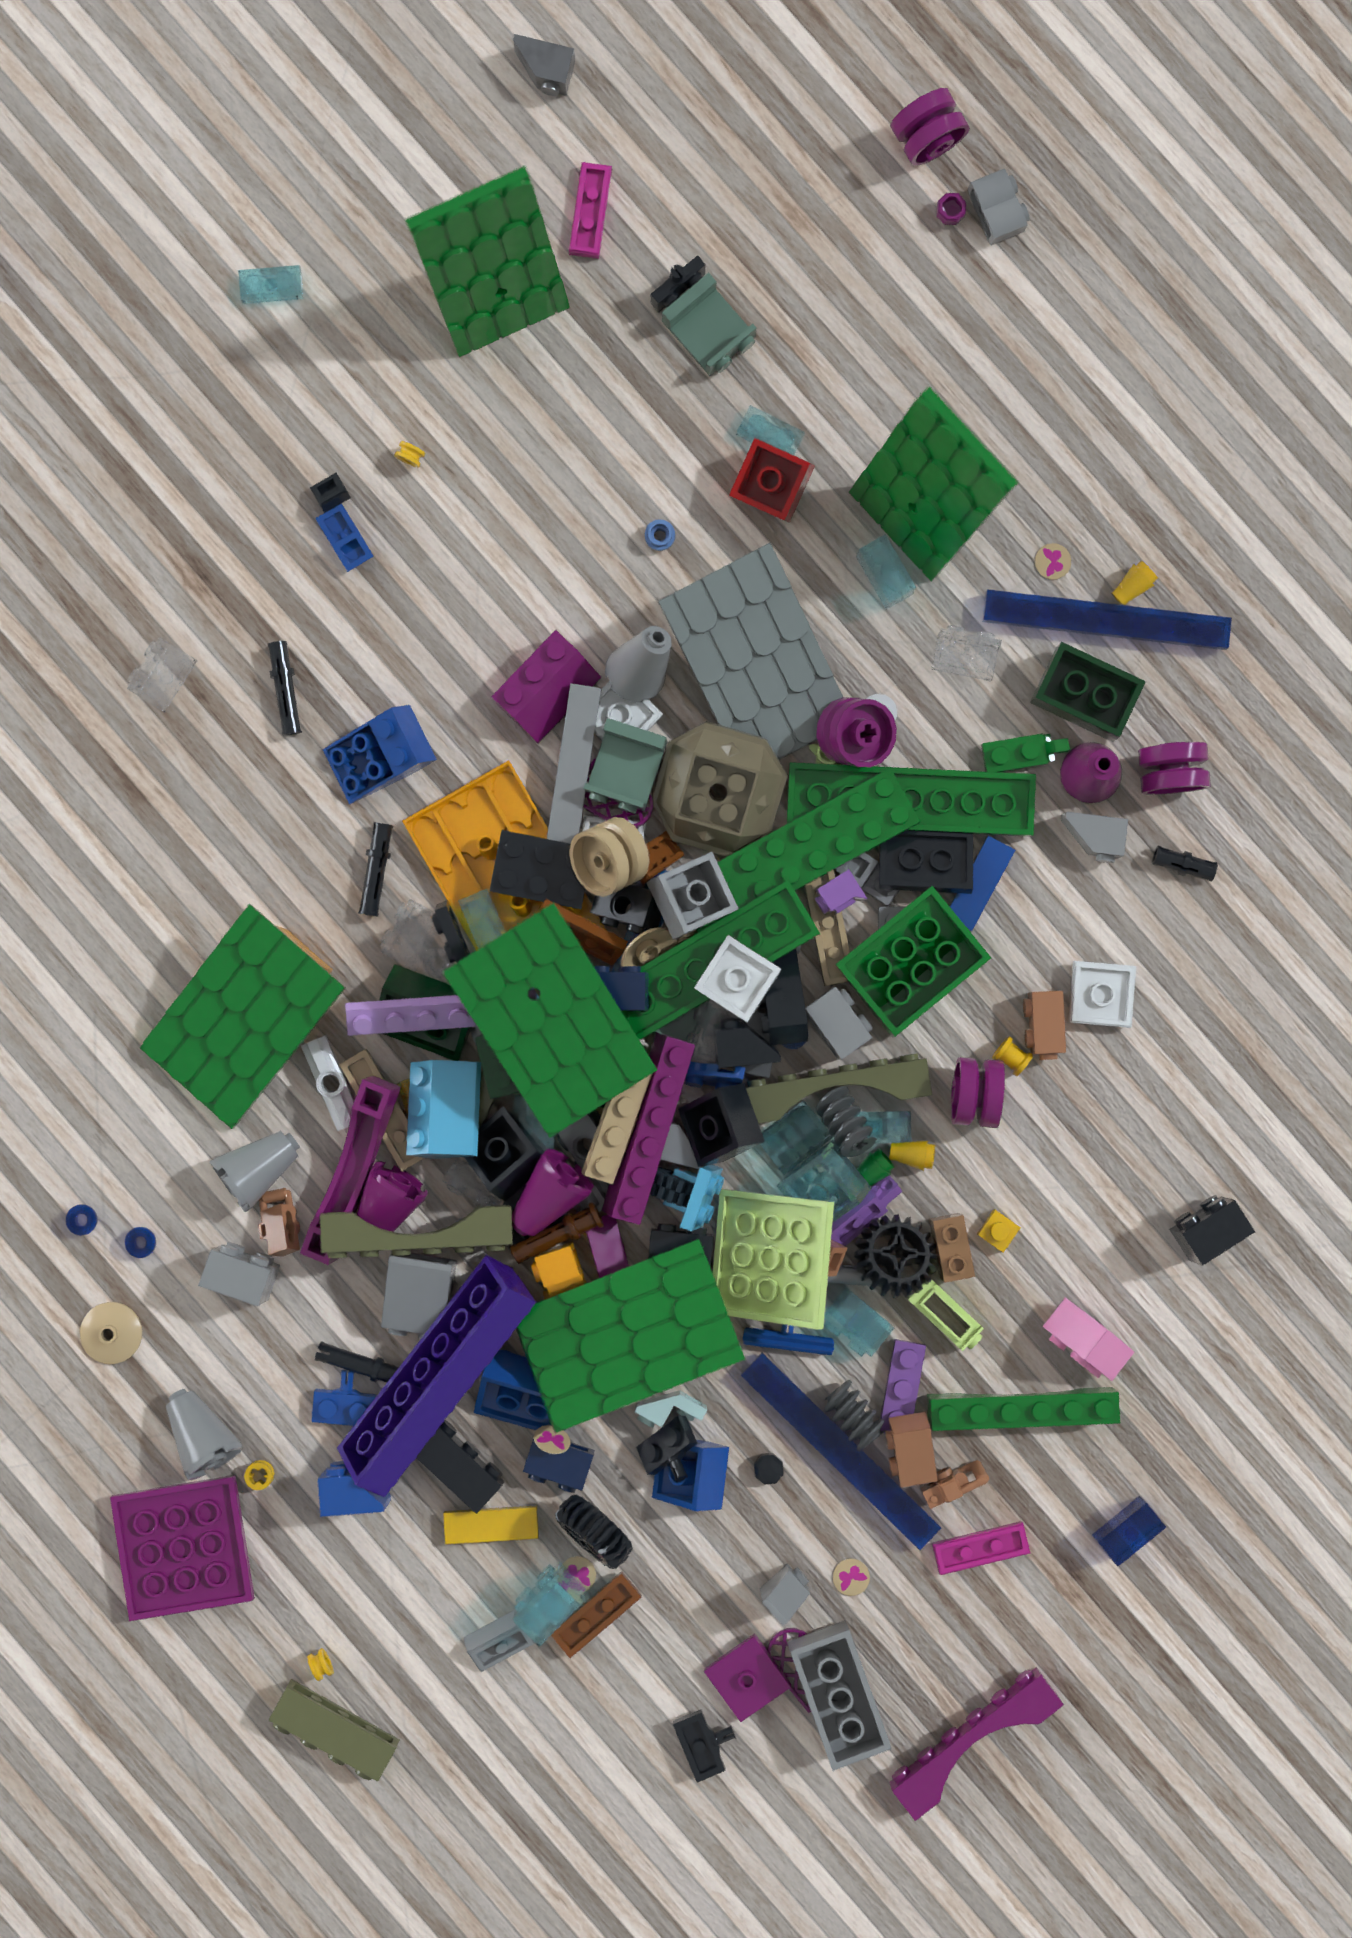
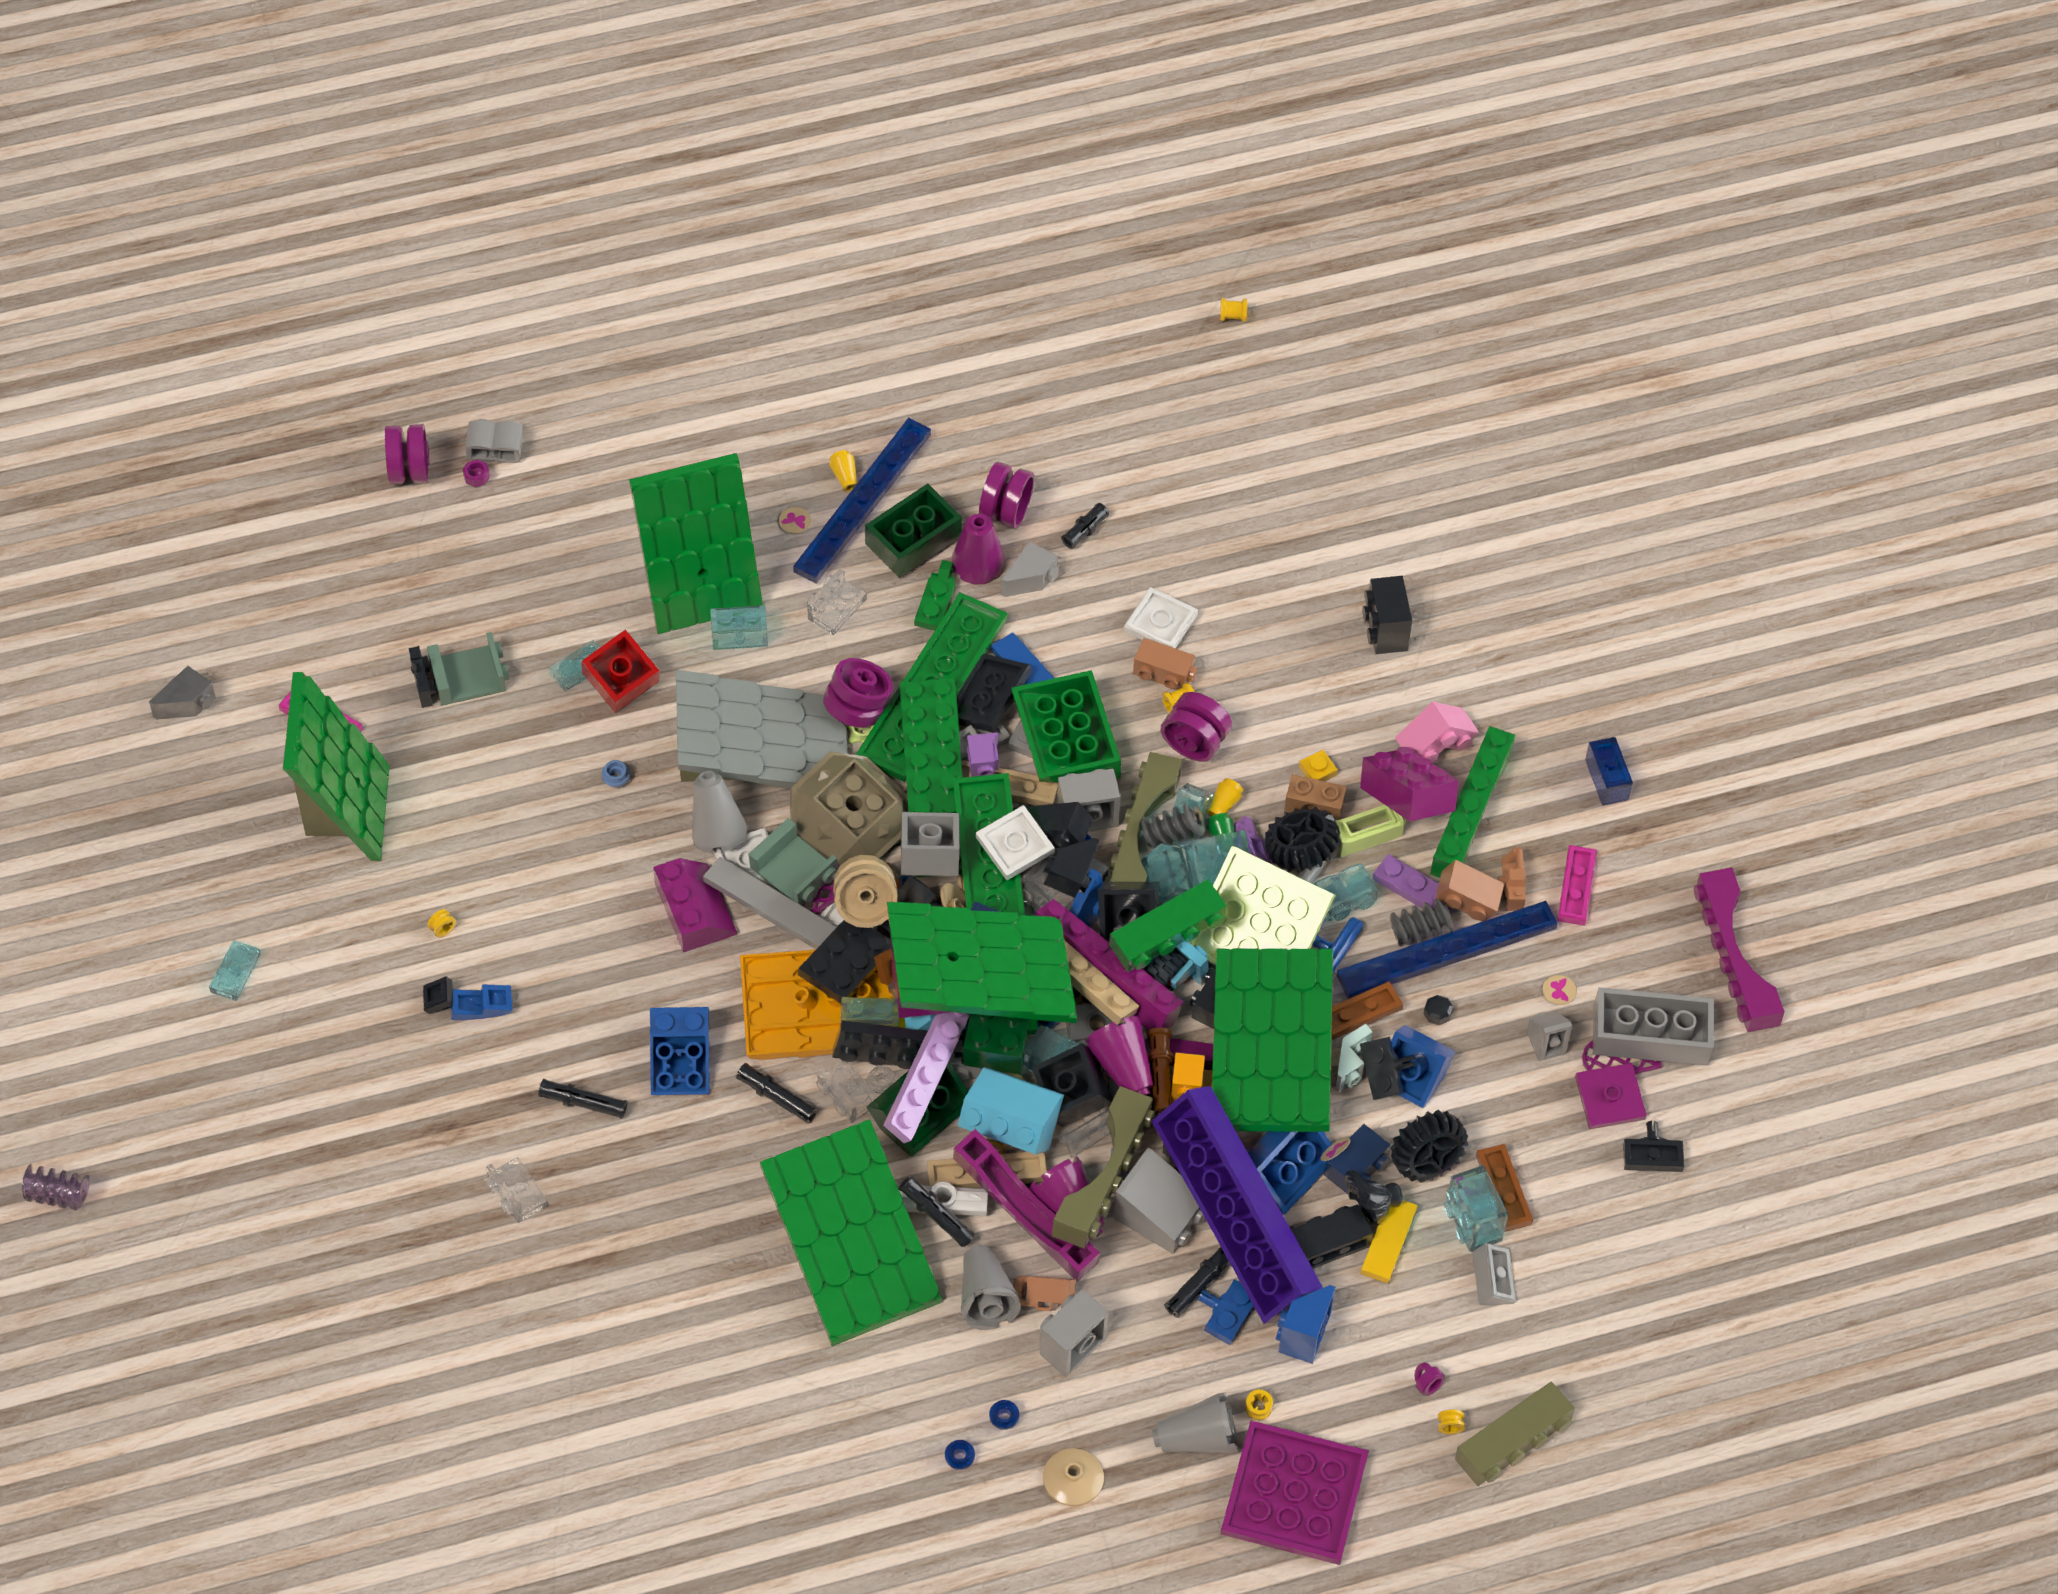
camera: 65 degrees left, 30 degrees down
(306, 1076) = (927, 1203): none -> black pin
(353, 1627) = (1430, 1380): none -> magenta tile
(516, 1498) = (1372, 1196): none -> black hair
(700, 1180) = (1168, 926): none -> green brick
(734, 1398) = (1364, 1009): none -> dark orange plate
(1003, 1341) = (1409, 784): none -> magenta brick

